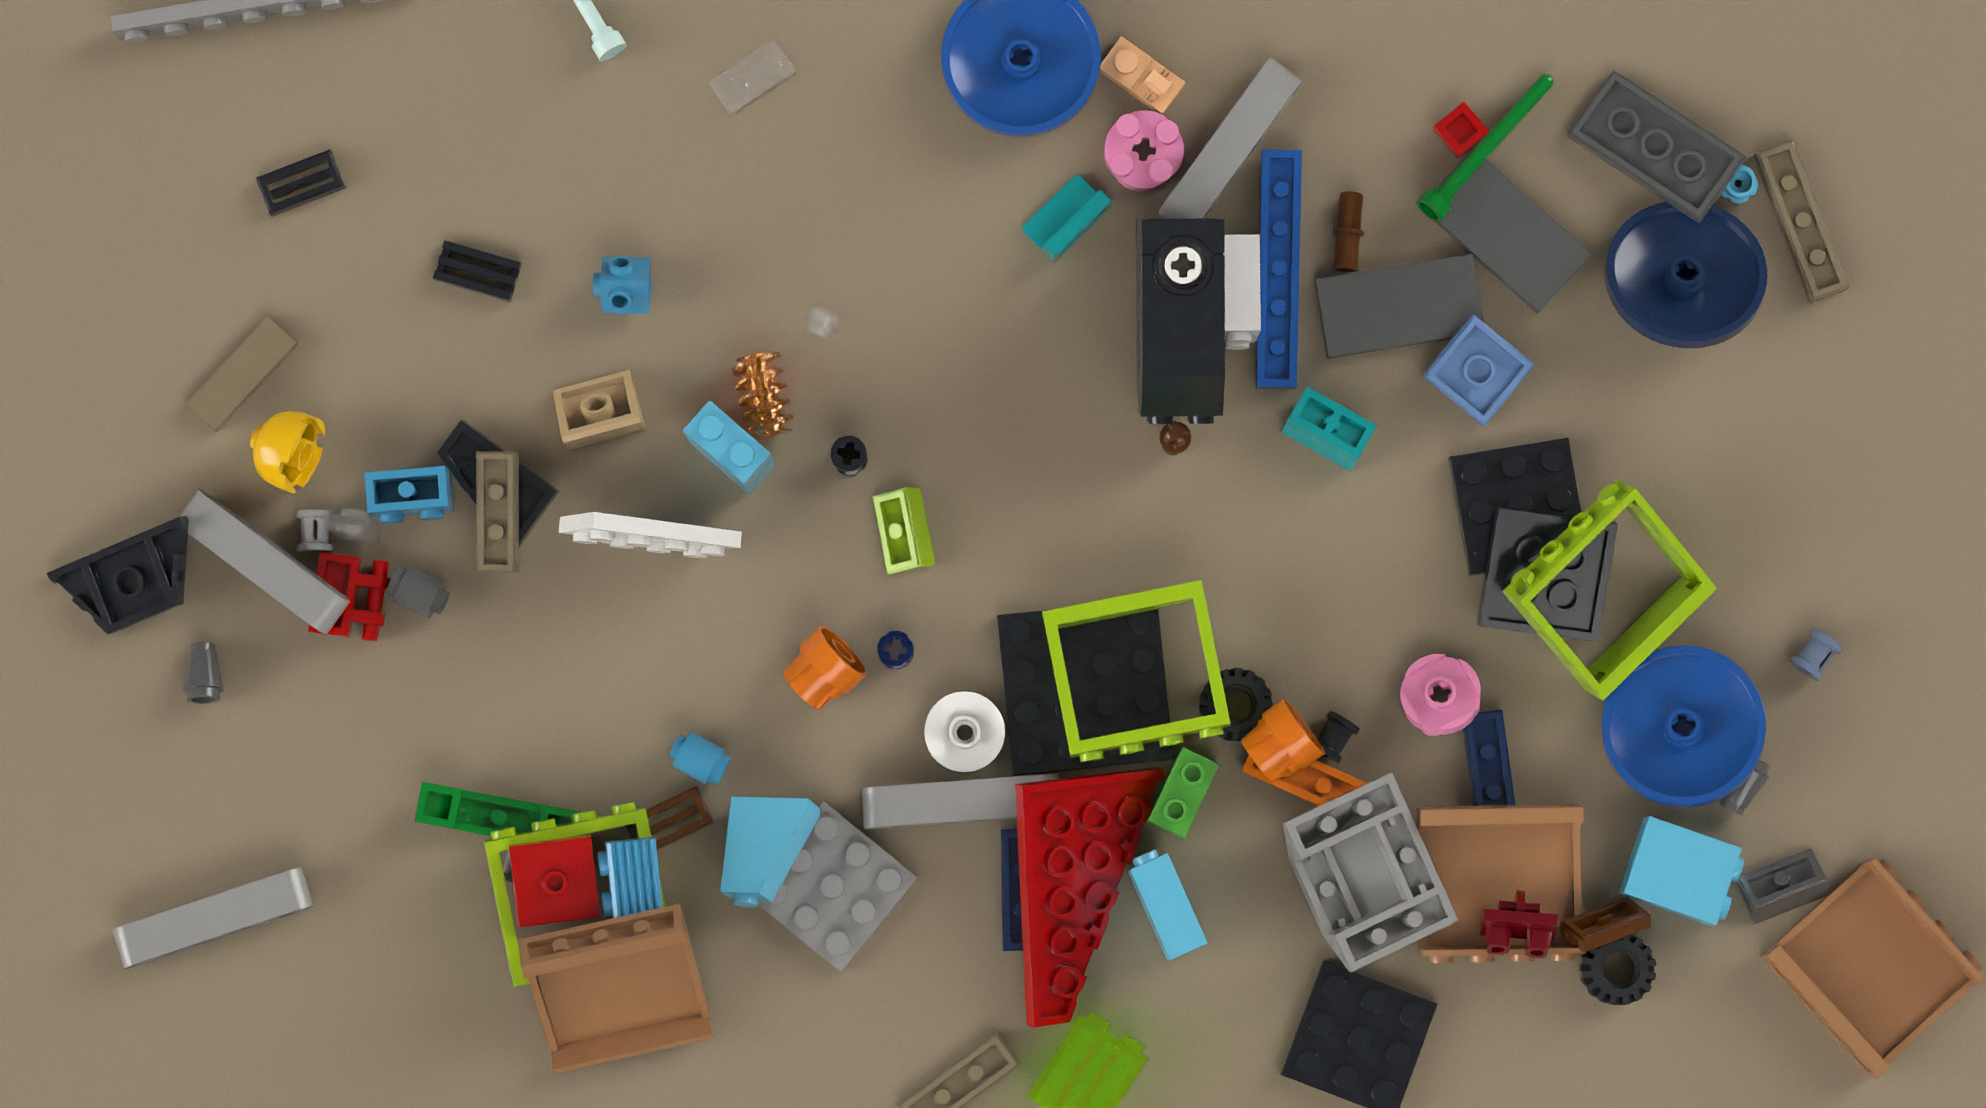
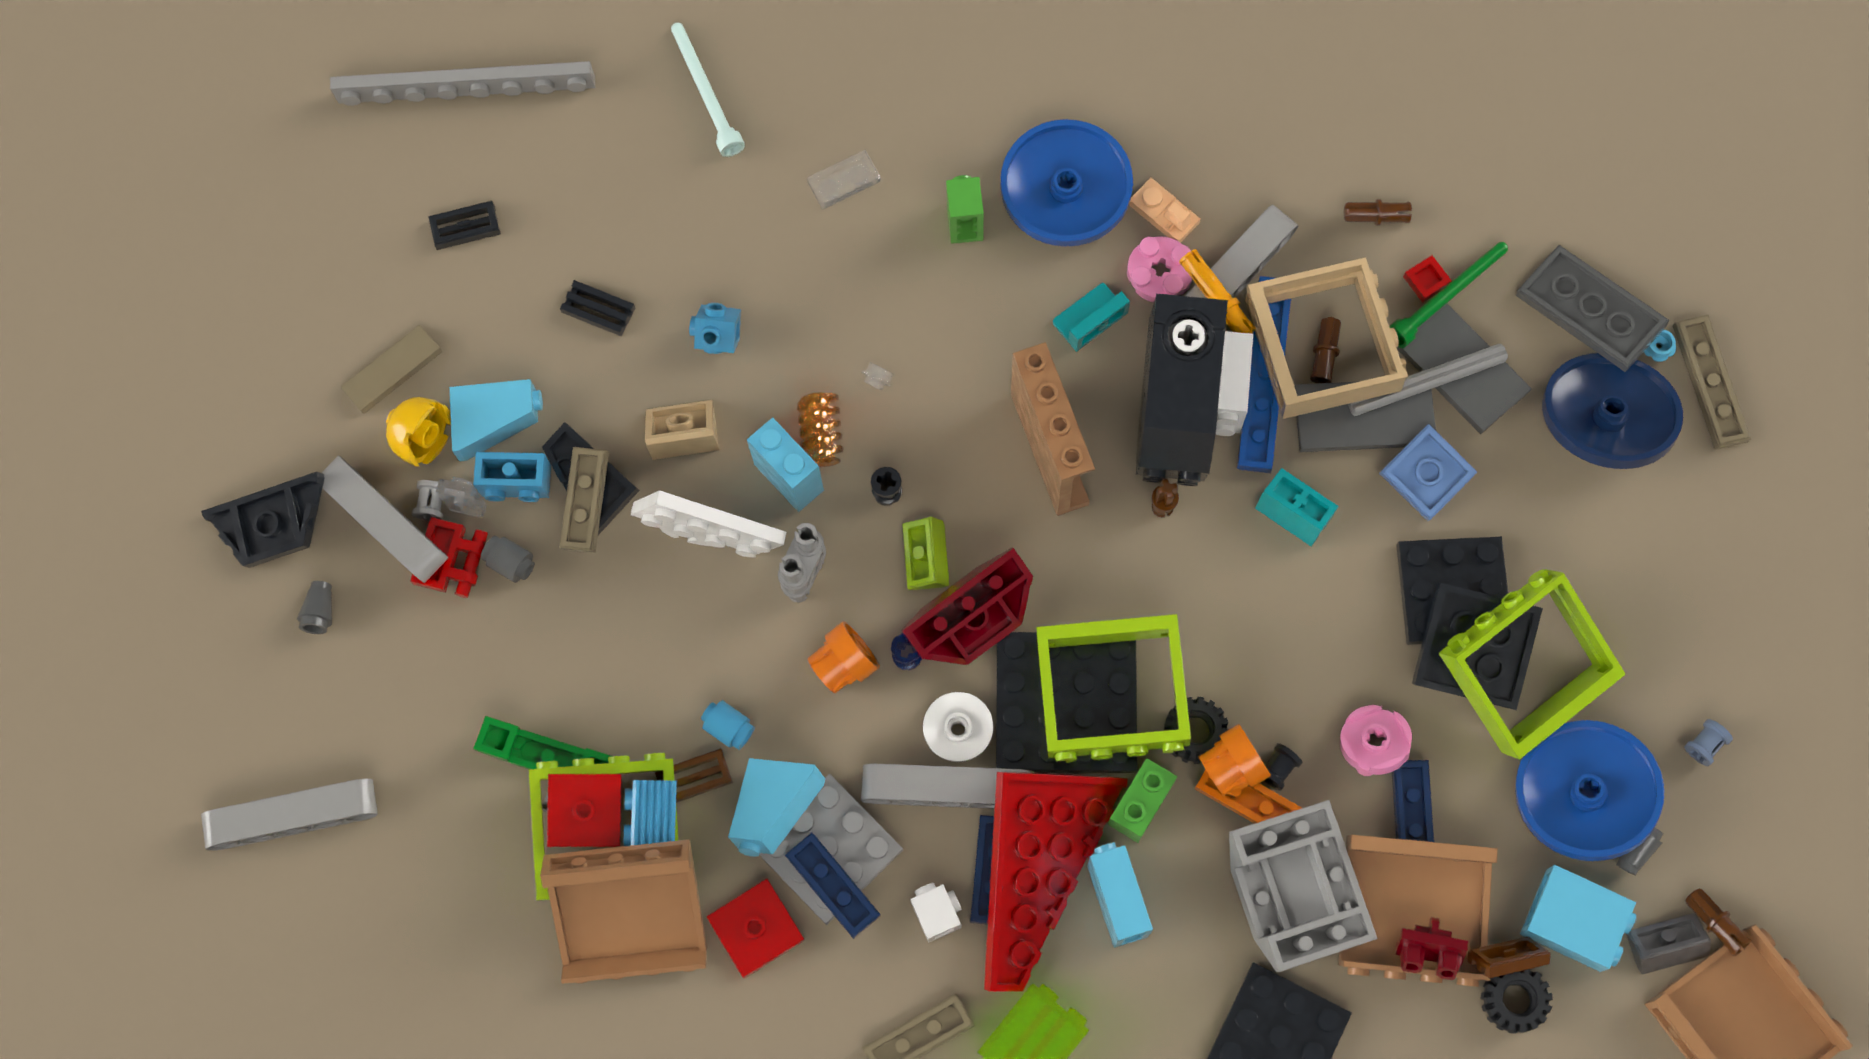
camera: 10 degrees right, 10 degrees down
(370, 418) = (490, 414): none -> medium azure slope
(761, 985) = (755, 928): none -> red plate
(764, 565) = (802, 562): none -> light grey pin
(844, 929) = (832, 885): none -> dark blue tile
(903, 105) = (965, 209): none -> bright green brick
(963, 596) = (969, 614): none -> dark red wedge
(963, 943) = (936, 911): none -> white brick
(1035, 374) = (1050, 427): none -> medium nougat panel
(1213, 183) = (1214, 289): none -> light orange pin
(1395, 51) = (1377, 212): none -> reddish brown axle
(1402, 186) = (1314, 281): none -> tan window
(1469, 258) = (1436, 377): none -> light grey axle
(1834, 856) = (1717, 921): none -> reddish brown axle

